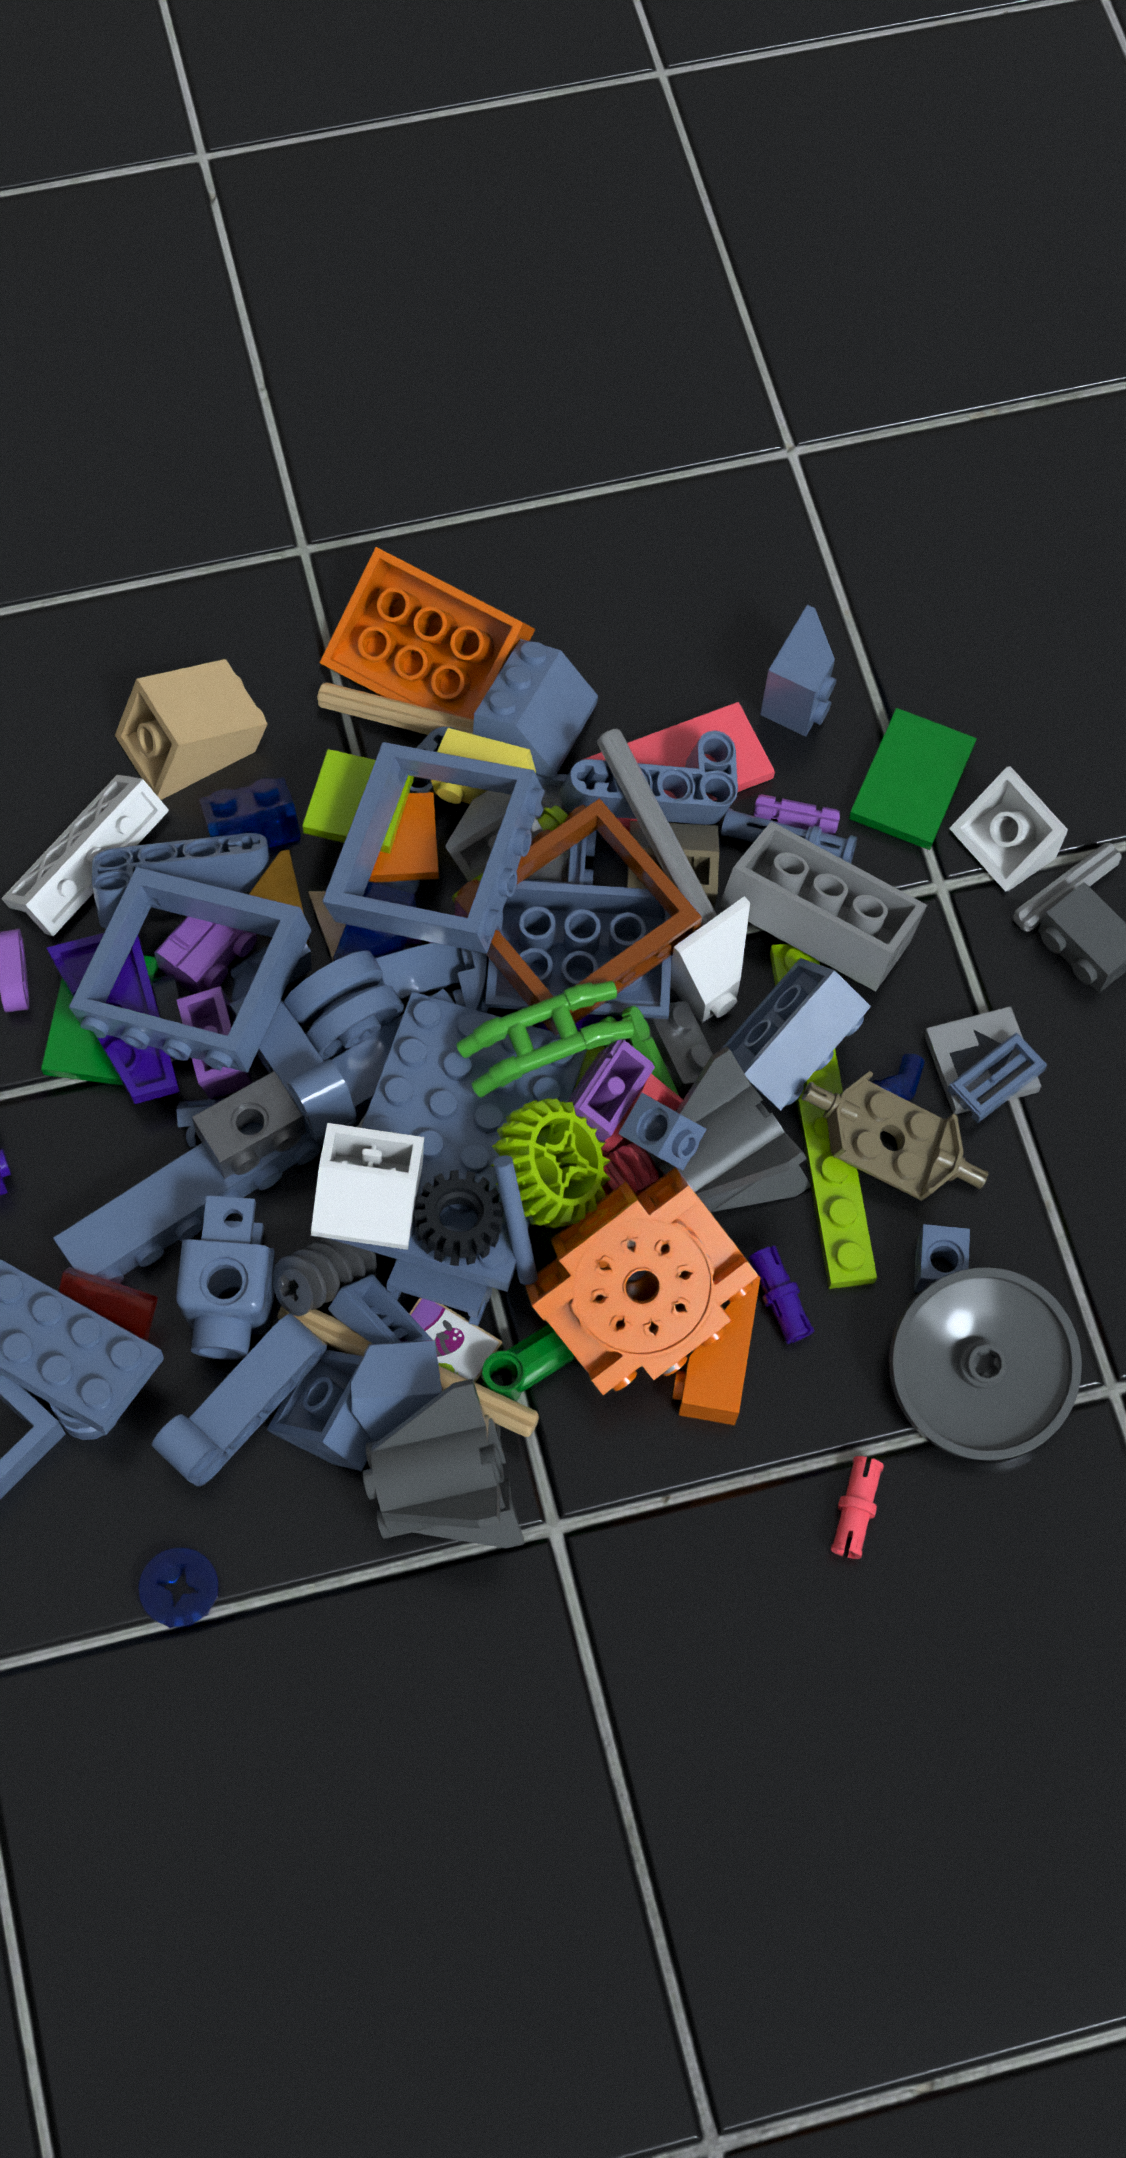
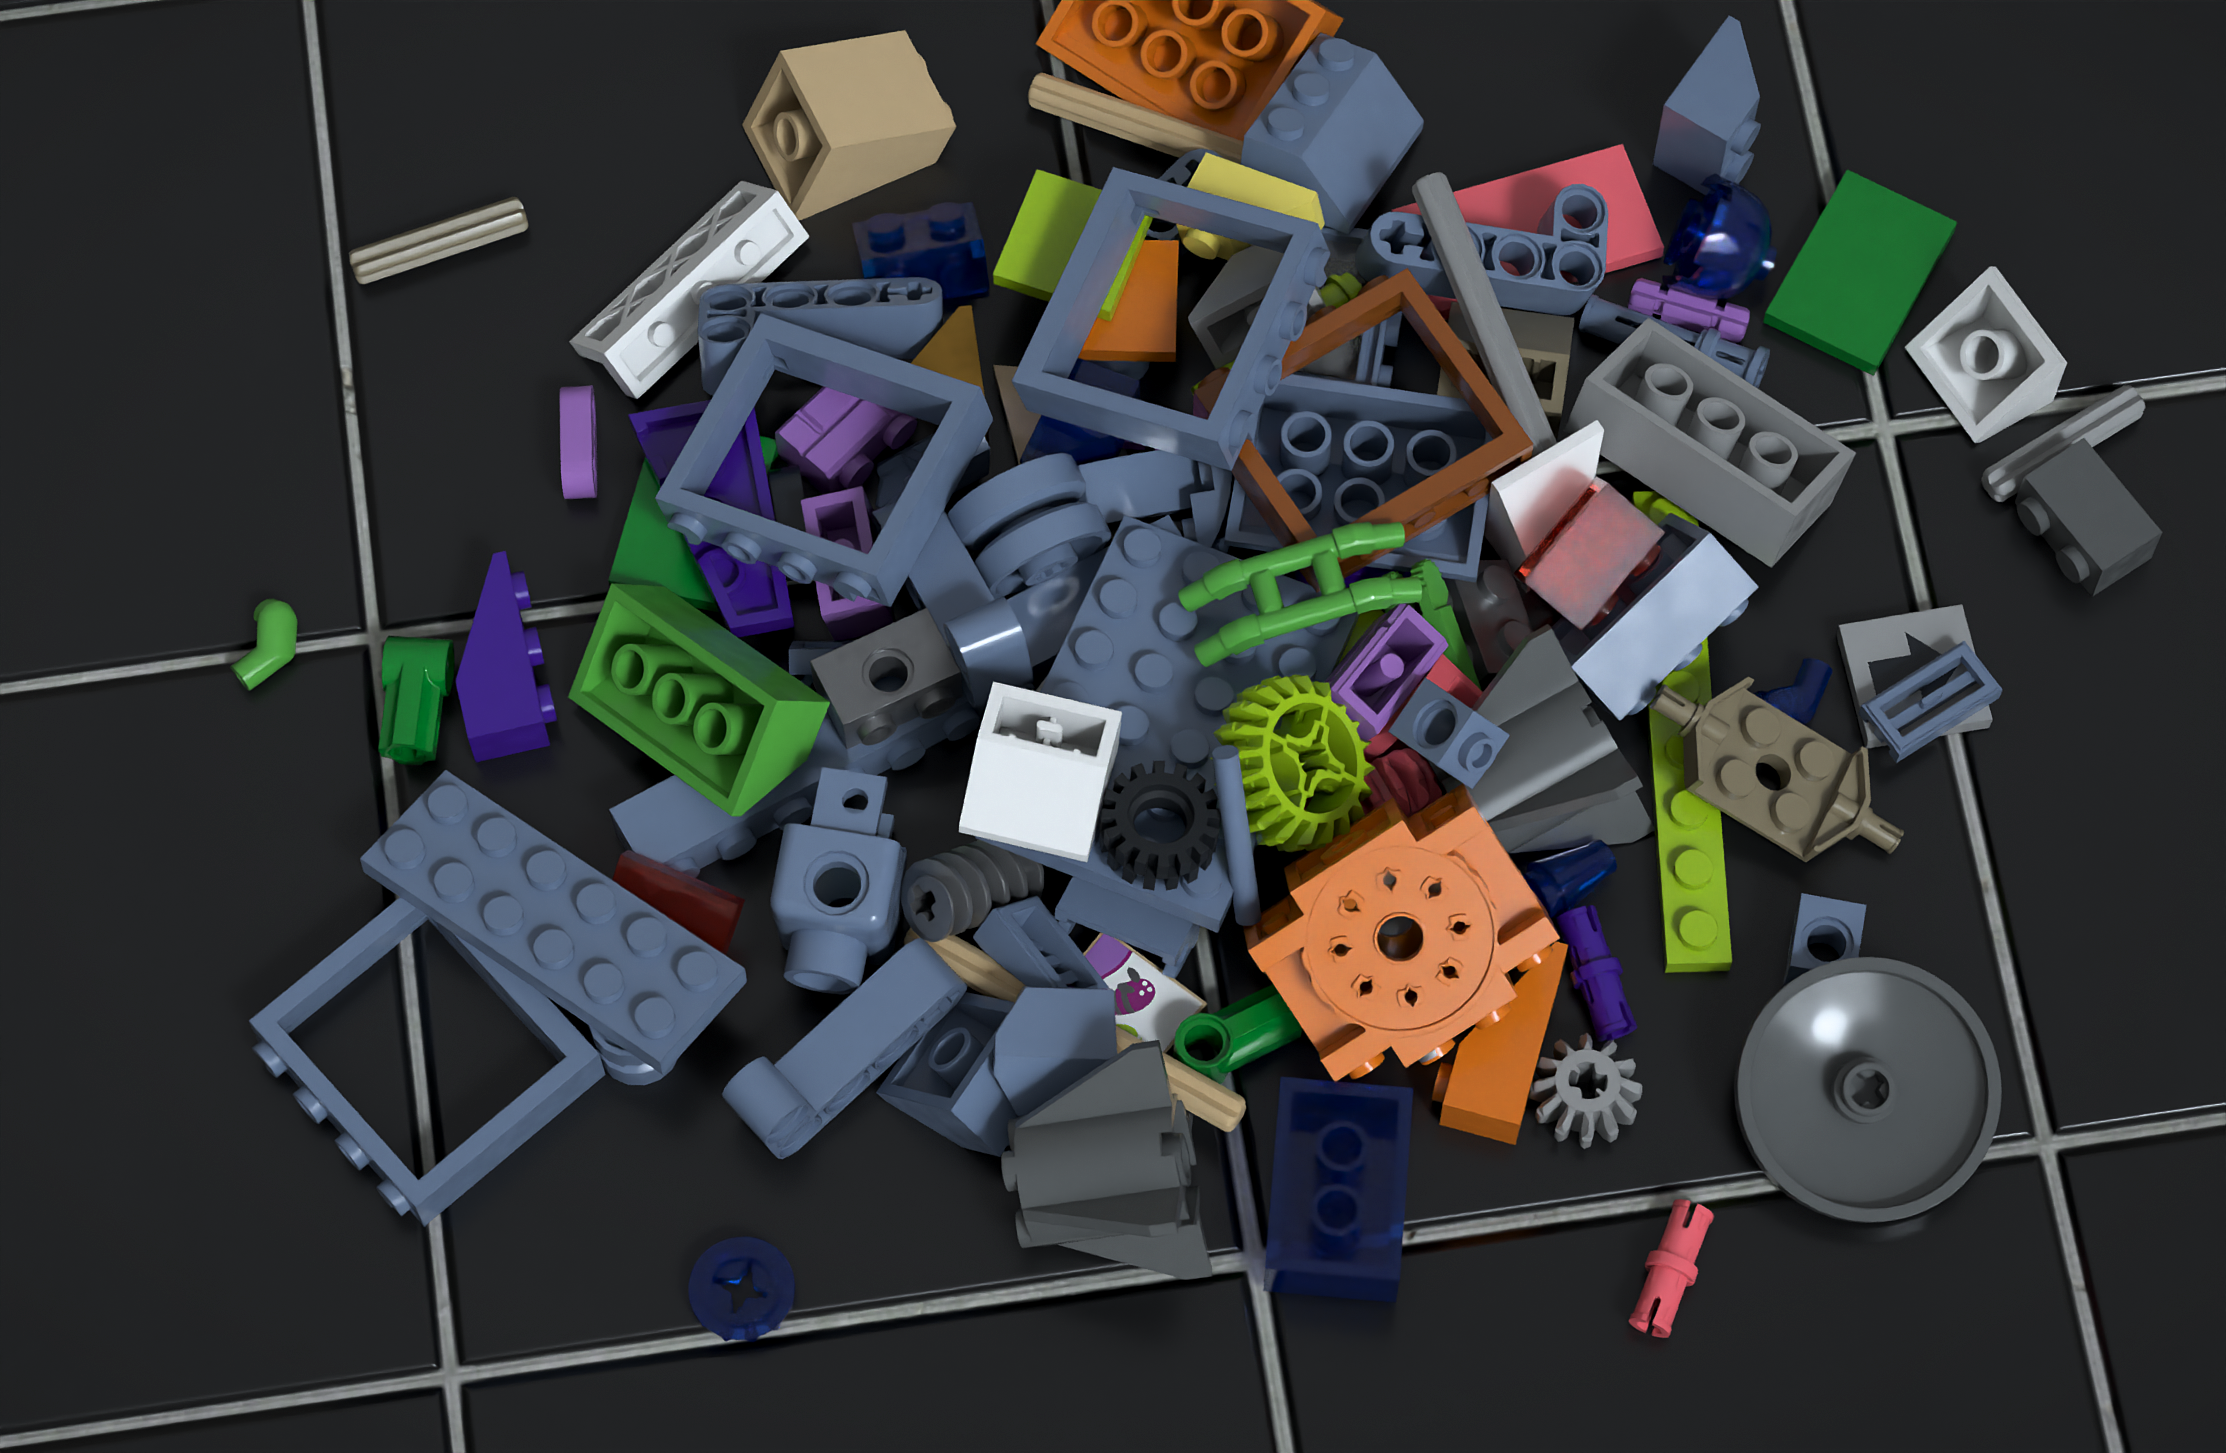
camera: 10 degrees right, 0 degrees up
(111, 1150) = (695, 697): none -> bright green slope
(612, 1473) = (1338, 1189): none -> clear blue brick
(749, 993) = (1590, 555): none -> clear red slope
(755, 1225) = (1570, 876): none -> clear blue cone
(794, 1371) = (1564, 1100): none -> light grey gear
(814, 764) = (1720, 242): none -> clear blue cylinder

